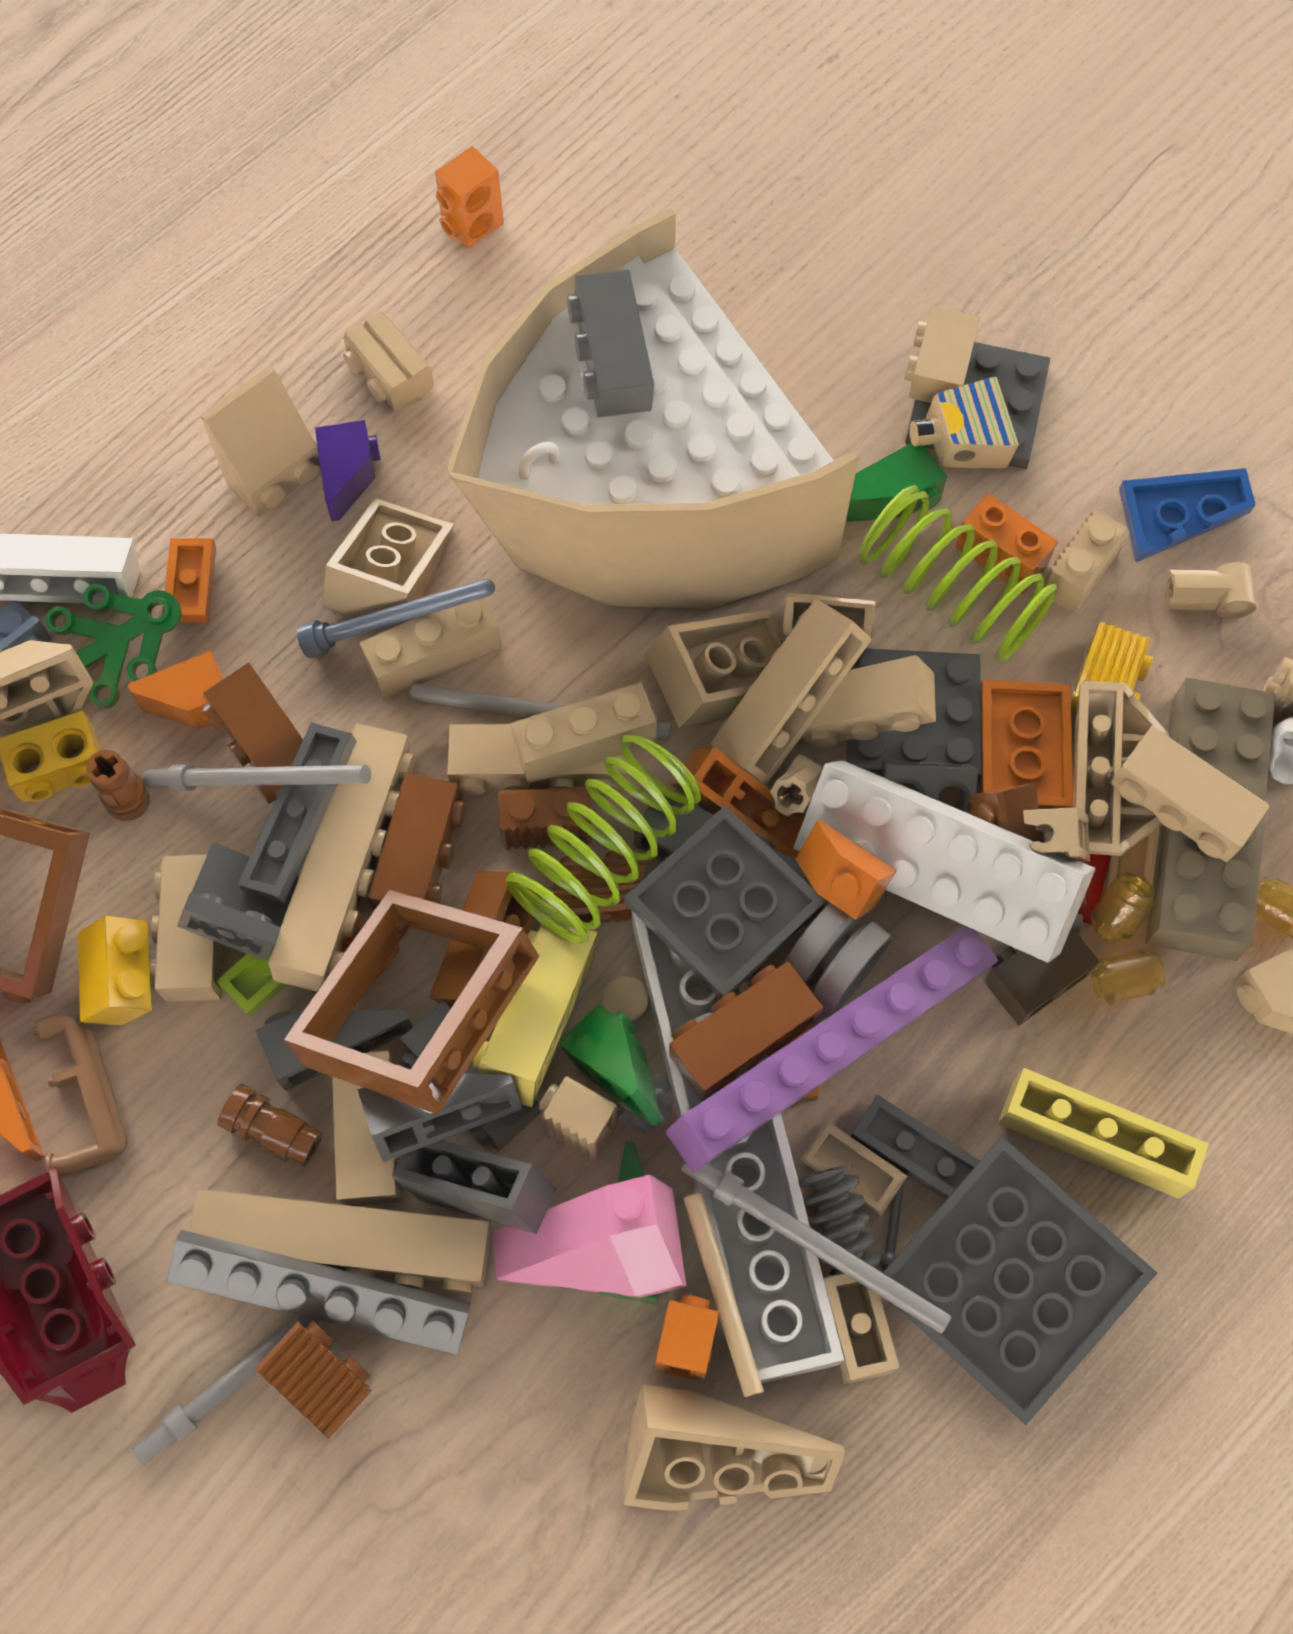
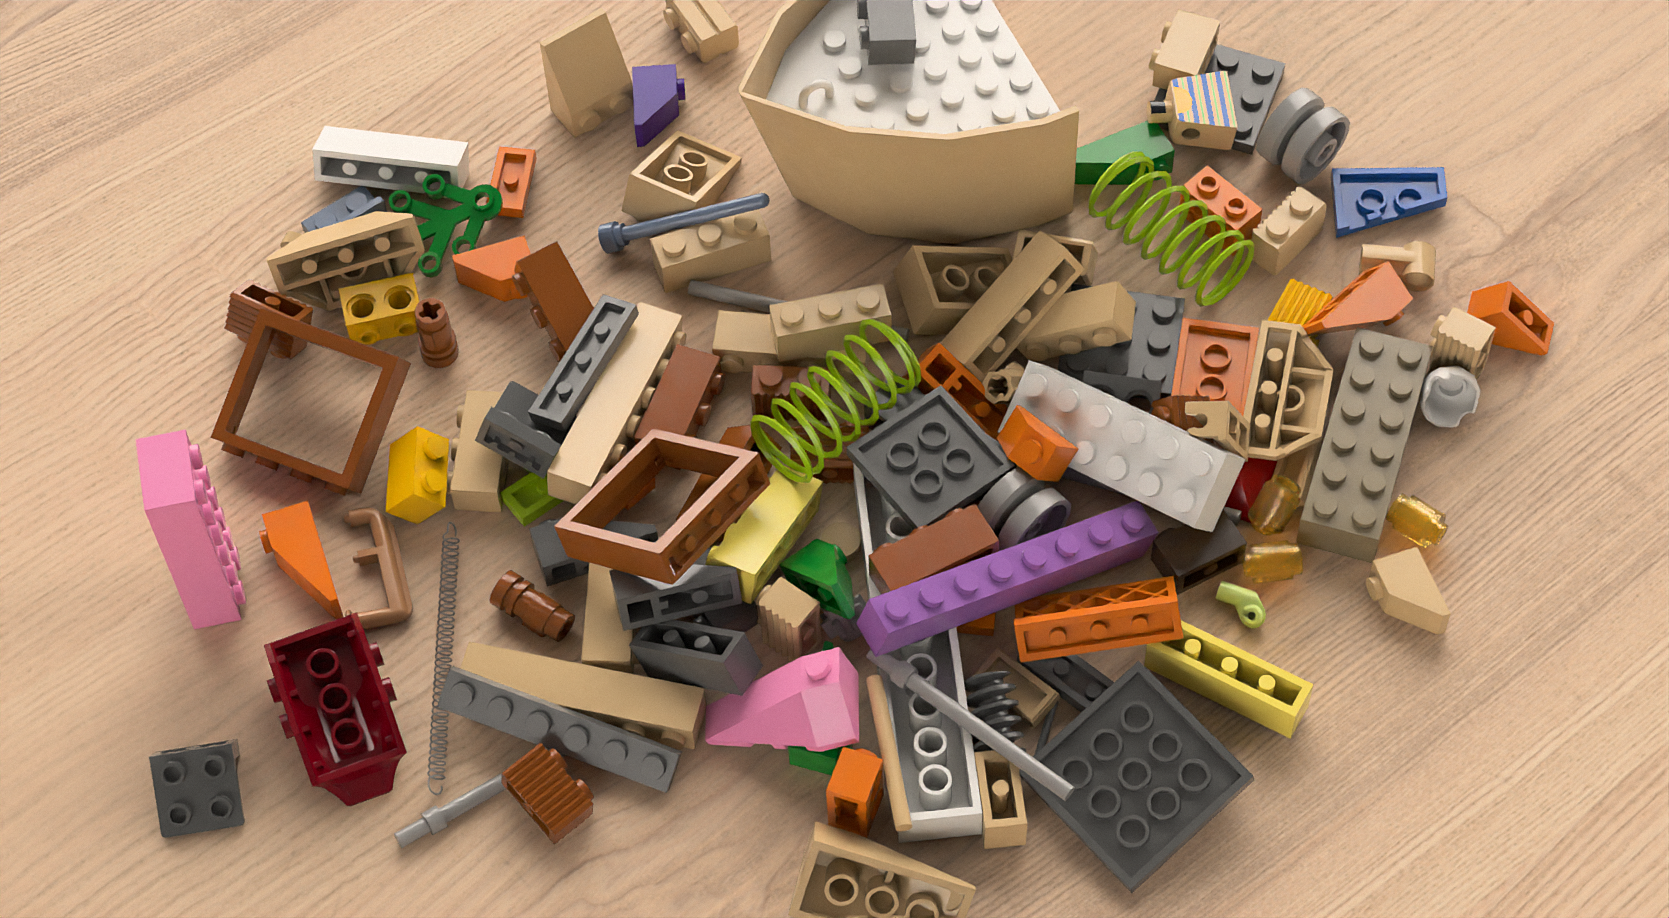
camera: 10 degrees right, 10 degrees down
(172, 1296) = (438, 659): none -> light grey piece
(187, 777) = (493, 334): light grey bar -> none
(947, 1097) = (1097, 619): none -> orange fence
(1088, 446) = (1302, 135): none -> light grey wheel
(1103, 1029) = (1245, 601): none -> yellowish green arm
(1189, 641) = (1367, 301): none -> orange slope
(1189, 795) = (1337, 412): tan brick -> none

